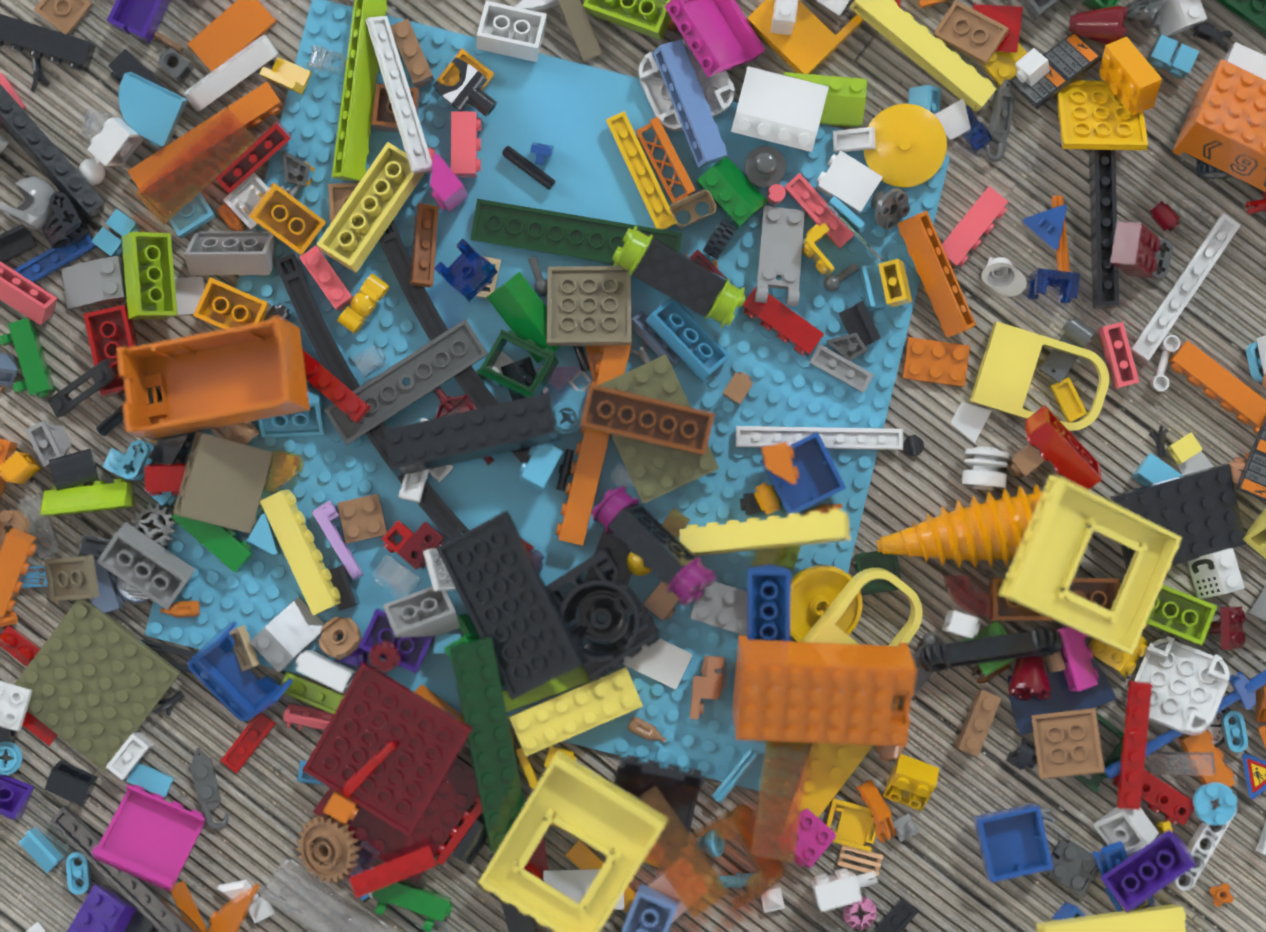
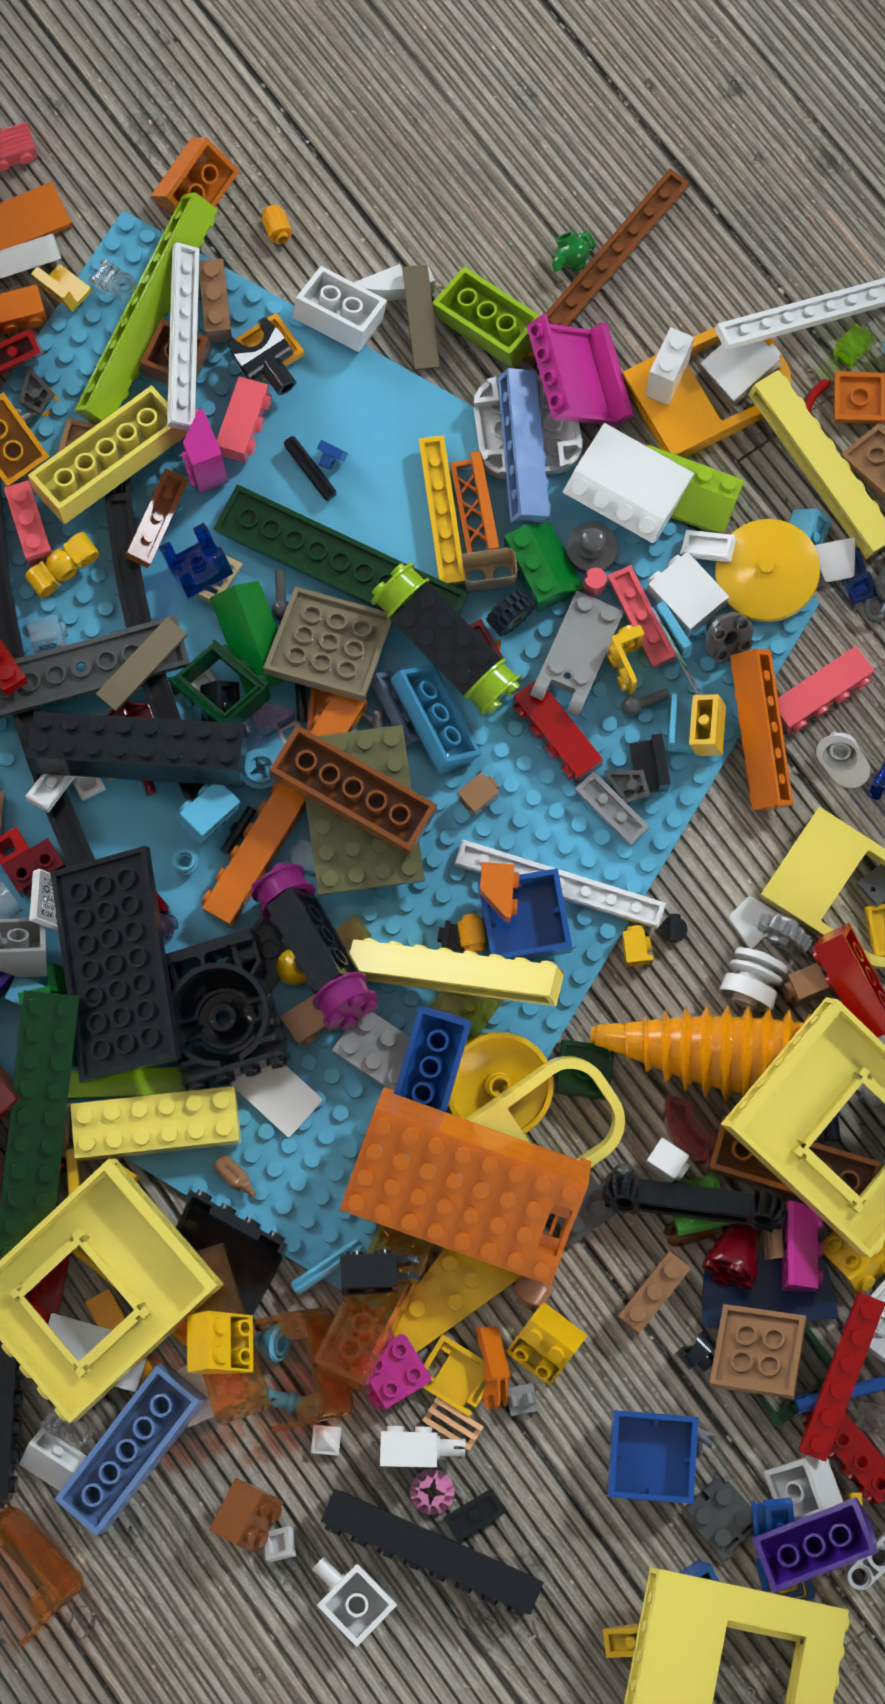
camera: 20 degrees right, 10 degrees down
(452, 366) = (141, 664): none -> dark tan tile
(525, 506) = (179, 856): none -> medium azure plate
(679, 863) = (219, 1343): none -> yellow slope
(709, 684) = (329, 1142): nougat plate -> none
(775, 776) = (375, 1272): none -> black hinge
(889, 468) = (636, 946): none -> yellow brick
(936, 362) = (731, 837): orange plate -> none
(997, 426) = (783, 933): none -> light grey gear

